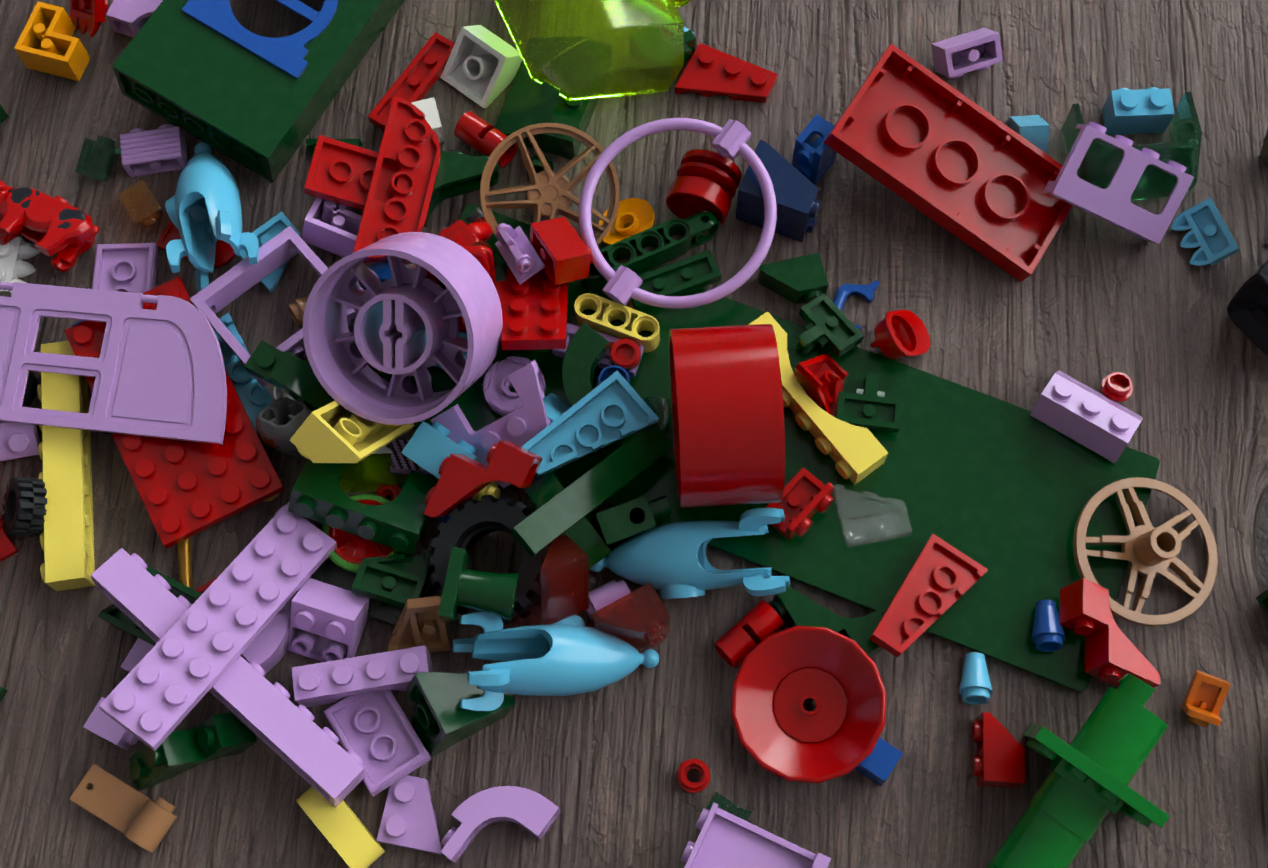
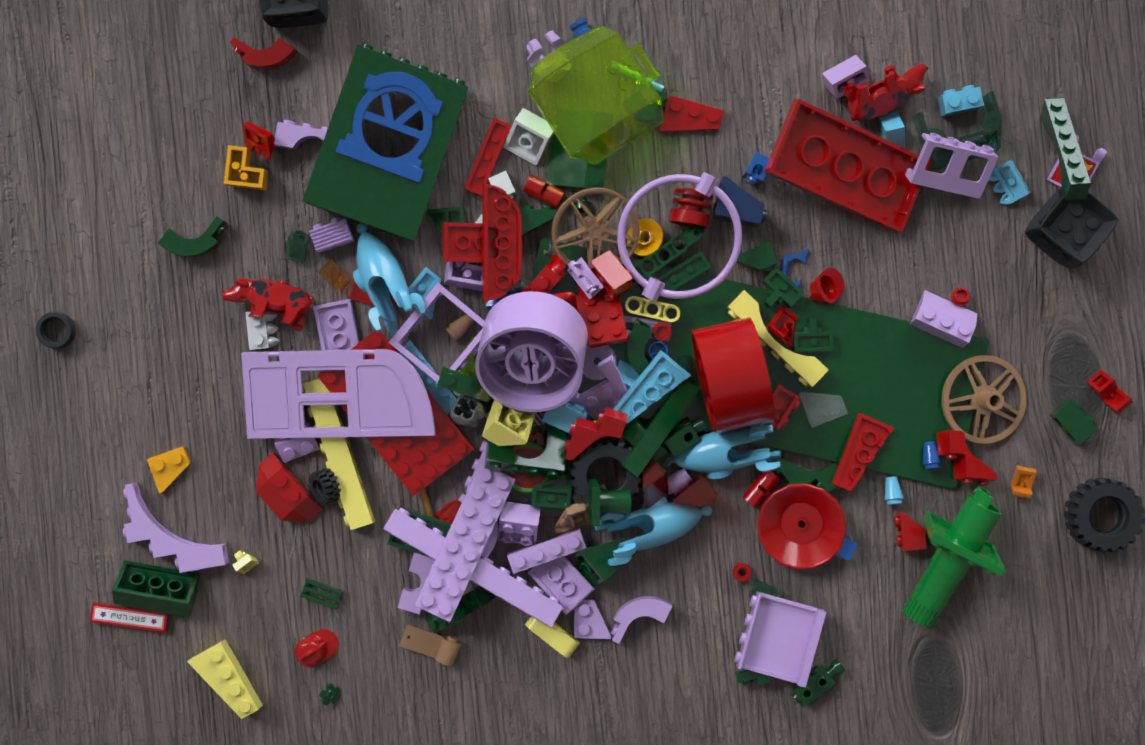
camera: 10 degrees left, 20 degrees up
(1023, 84) = (886, 95): none -> red animal

